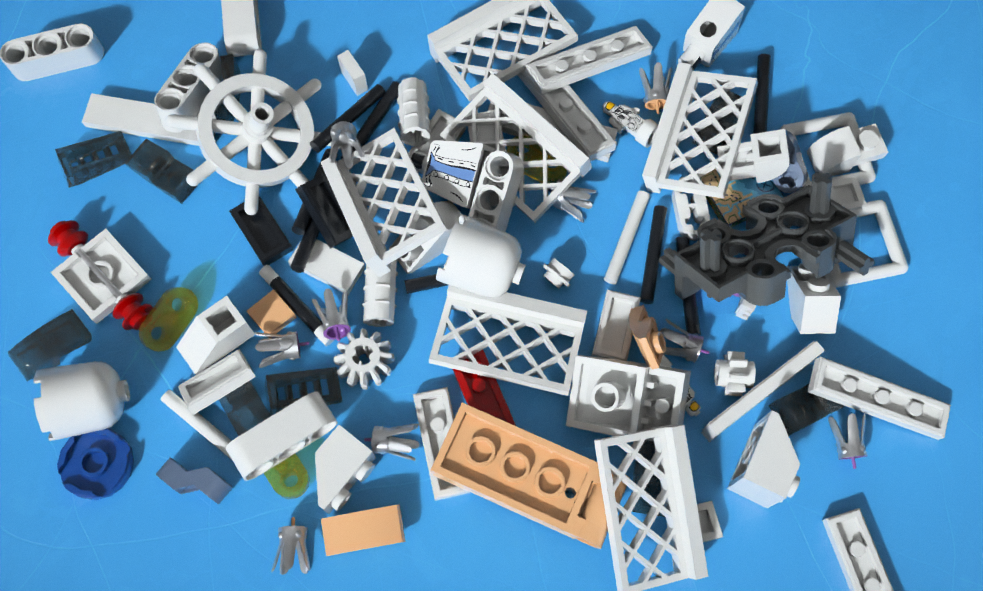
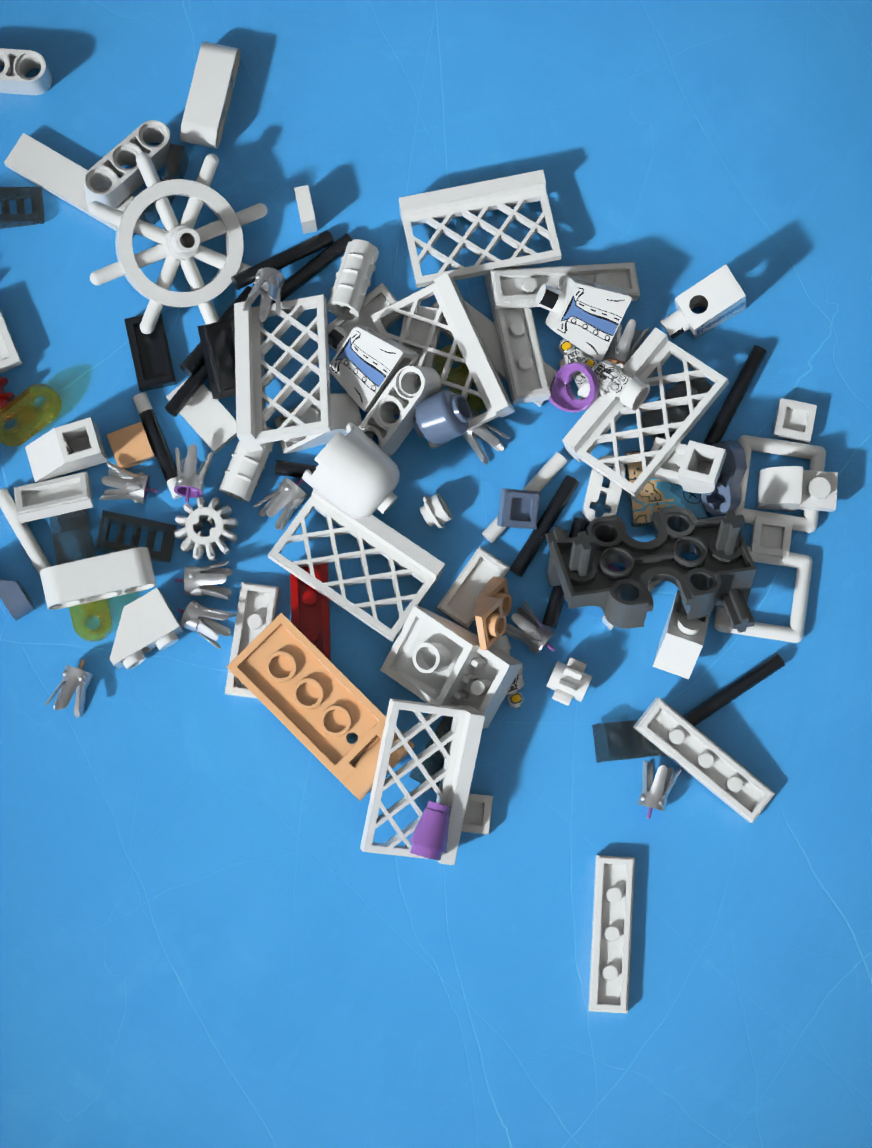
camera: 20 degrees right, 10 degrees up
(161, 170) = (70, 247): clear smoke slope -> none
(363, 530) = (145, 697): light nougat slope -> none
(371, 404) = (199, 580): none -> flat silver piece
(425, 304) = (287, 495): none -> flat silver piece
(536, 188) = (442, 417): none -> sand blue head
(617, 71) = (584, 313): none -> white torso
(624, 143) = (561, 392): none -> medium lavender piece
(628, 245) = (518, 508): none -> sand blue tile
(660, 111) = (609, 376): none -> white piece
(679, 552) = (431, 831): none -> medium lavender cone
(762, 391) = (590, 708): white tile -> none
(767, 464) = (555, 783): white slope -> none
(817, 100) = (794, 420): none -> white tile
(874, 328) = (734, 690): none -> black bar

